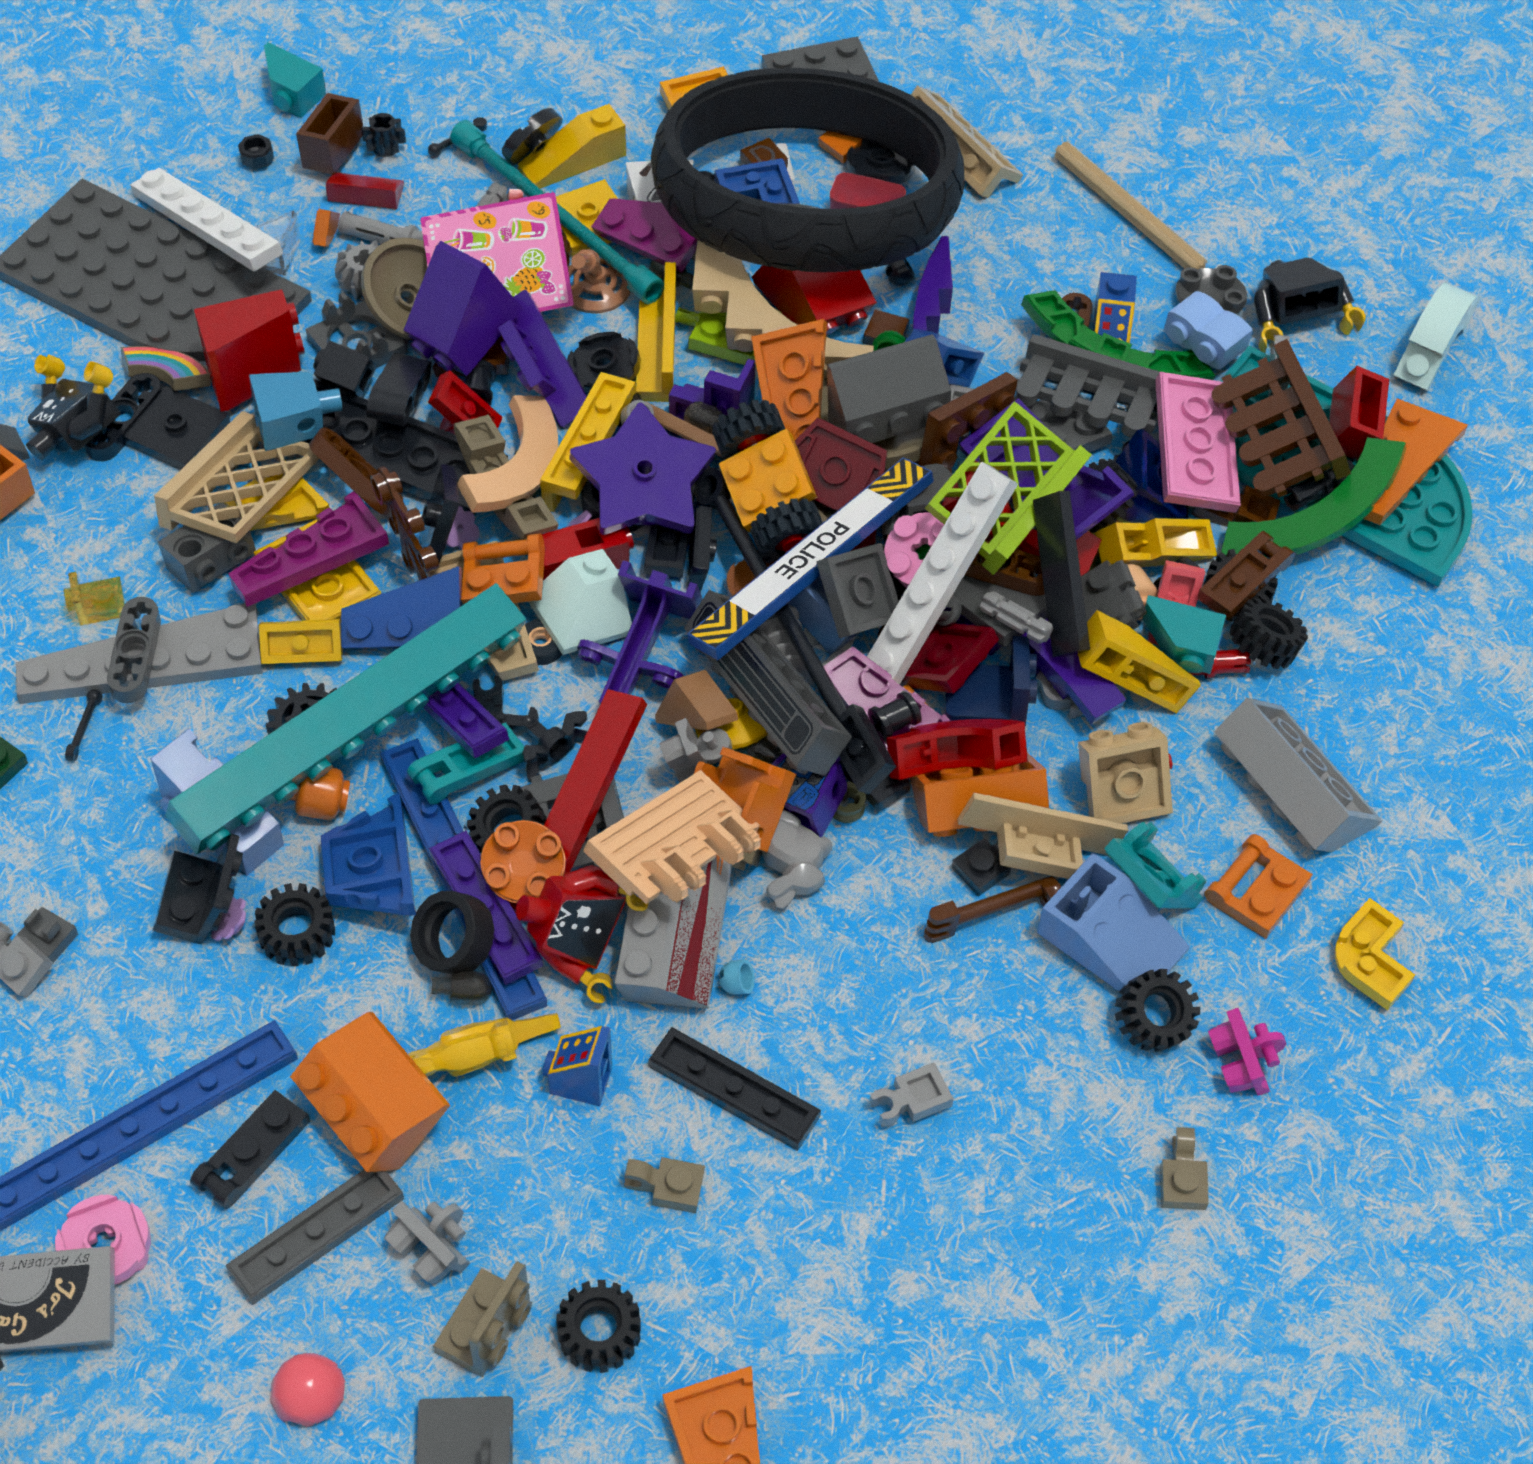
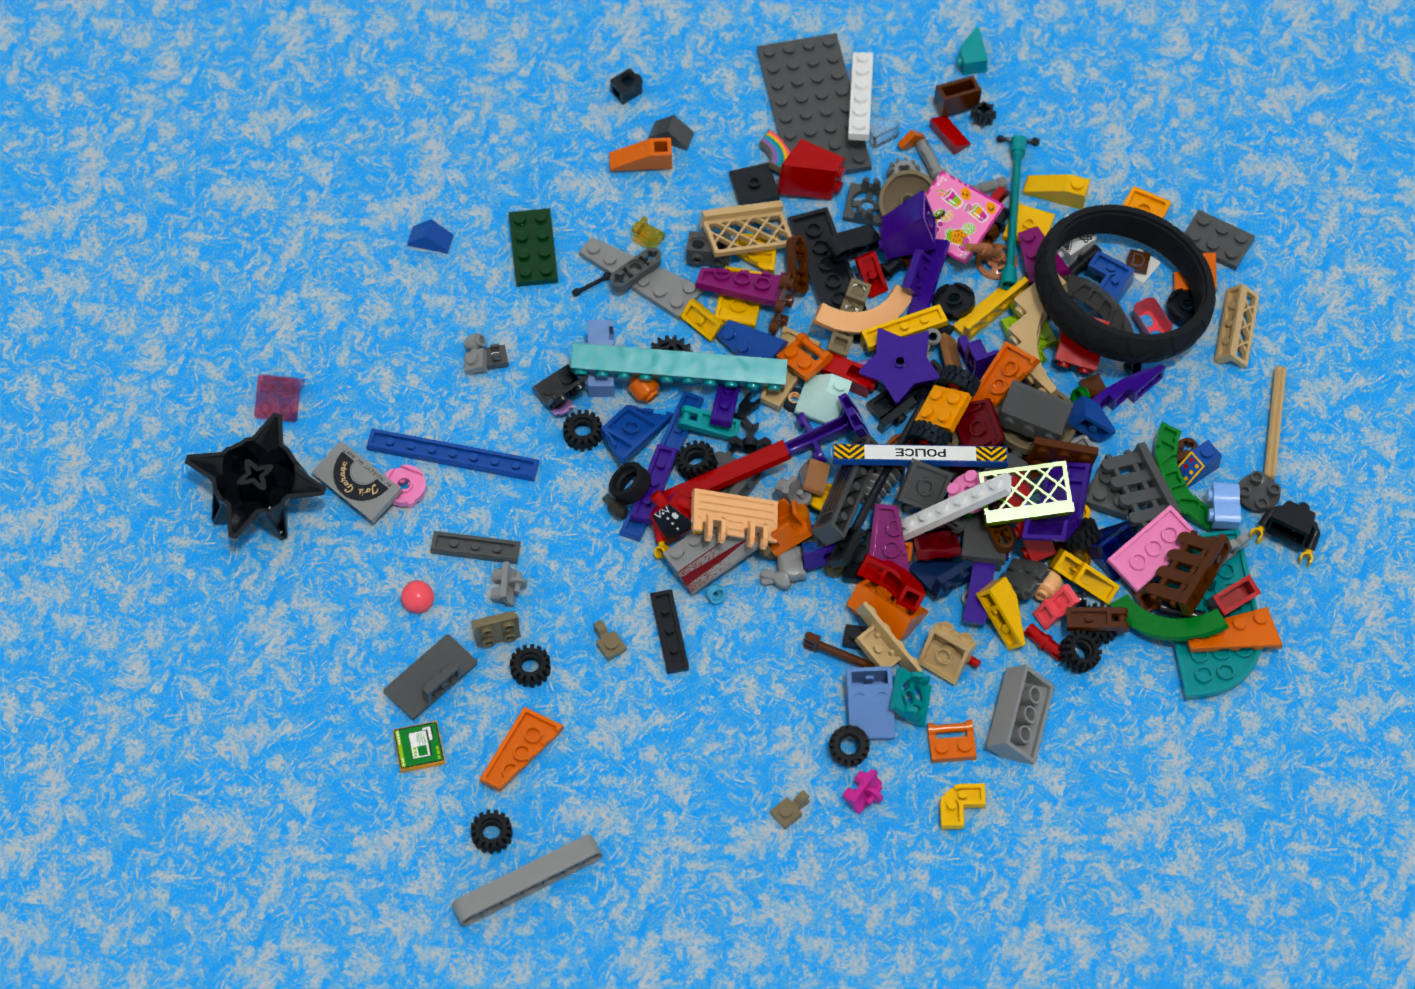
camera: 50 degrees right, 5 degrees up
(70, 410) = (715, 144): torso -> none
(125, 401) = (722, 161): black beam -> none
(251, 1149) = (483, 499): black plate -> none
(255, 151) = (922, 78): black tile -> none
(290, 407) = (798, 214): dark azure torso -> none
(344, 368) = (841, 215): black brick -> none
(370, 1093) = (538, 514): orange slope -> none
(440, 511) = (802, 312): black plate -> none
(463, 529) = (812, 329): lavender plant -> none
(480, 1044) = (595, 532): yellow animal -> none
(521, 858) = (681, 476): orange dish -> none
(533, 137) = (1040, 168): black plate -> none
(580, 1065) = (621, 573): blue slope -> none
(702, 415) = (961, 359): clear smoke cylinder -> none
(895, 715) = (882, 547): black bush -> none
(916, 1092) = (728, 694): light grey plate -> none
(1016, 617) = (972, 551): light grey axle -> none
(1061, 574) = (1003, 548): black tile -> none
(1185, 632) = (1039, 621): teal slope -> none
(1434, 334) = (1331, 591): light aqua arch -> none

